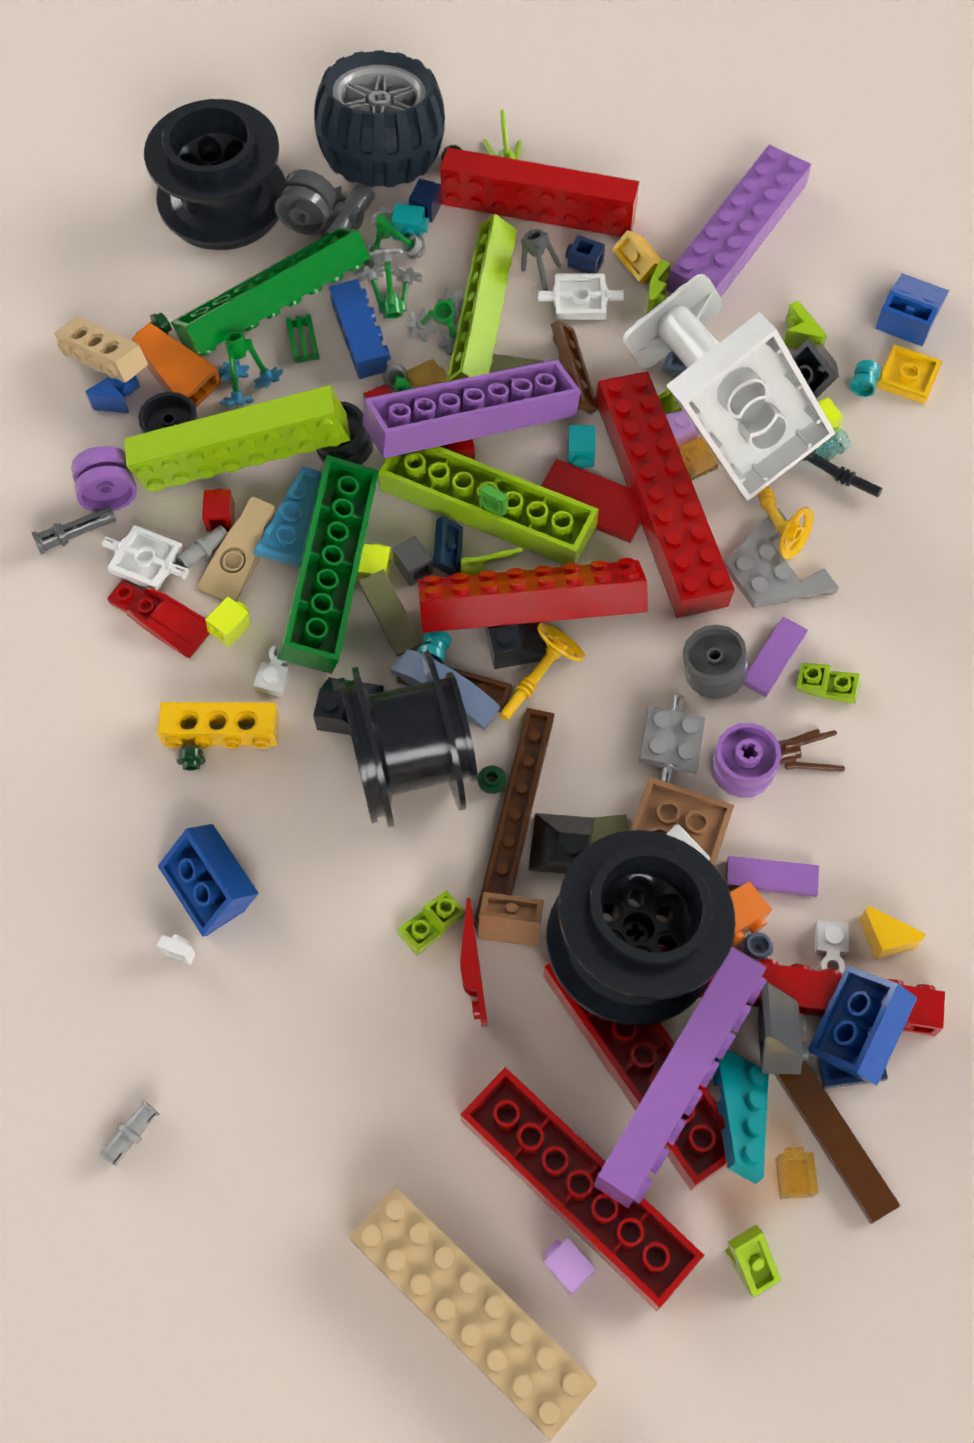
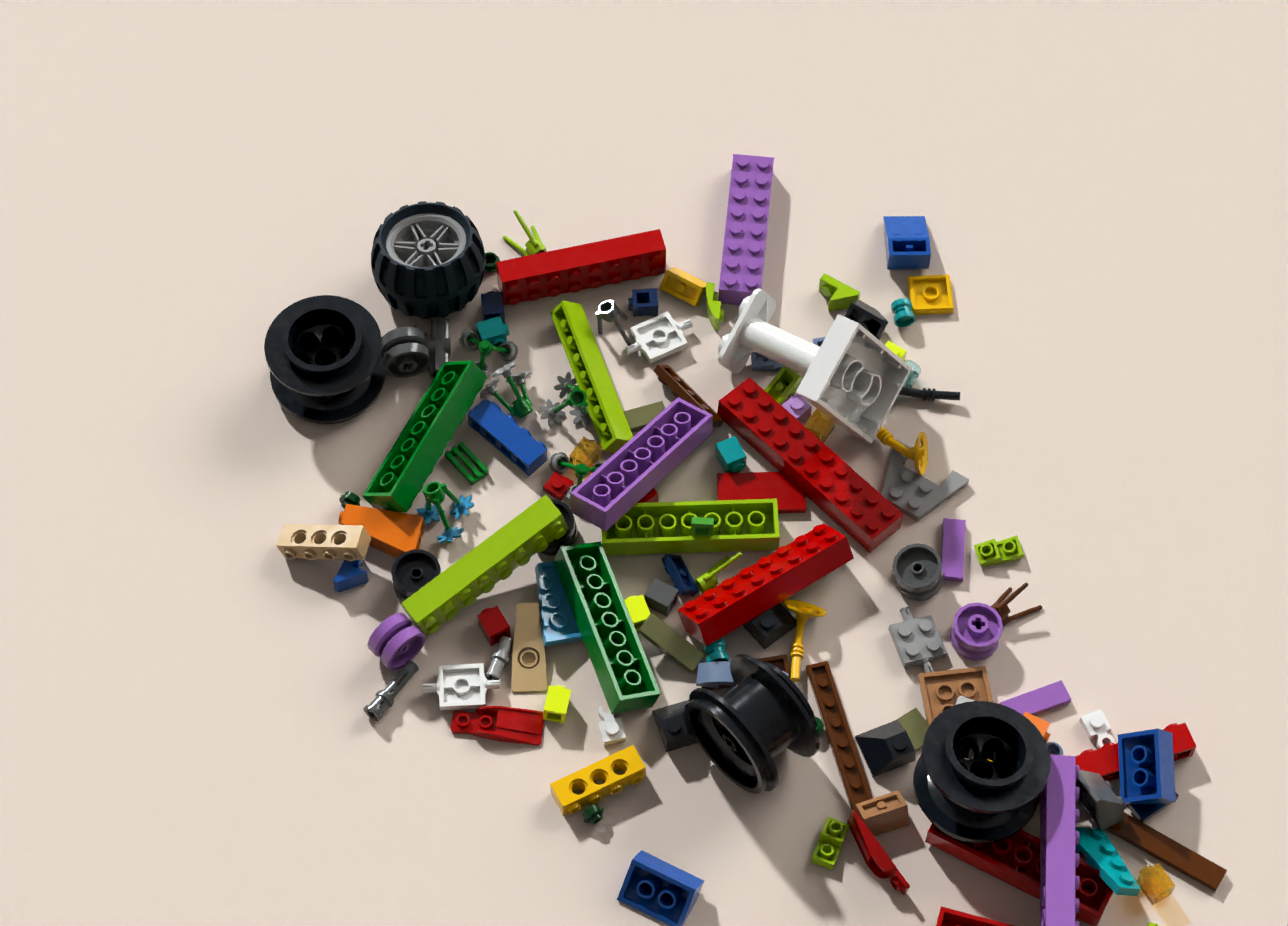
camera: 30 degrees left, 5 degrees down
(887, 934) = (1129, 704): yellow slope -> none

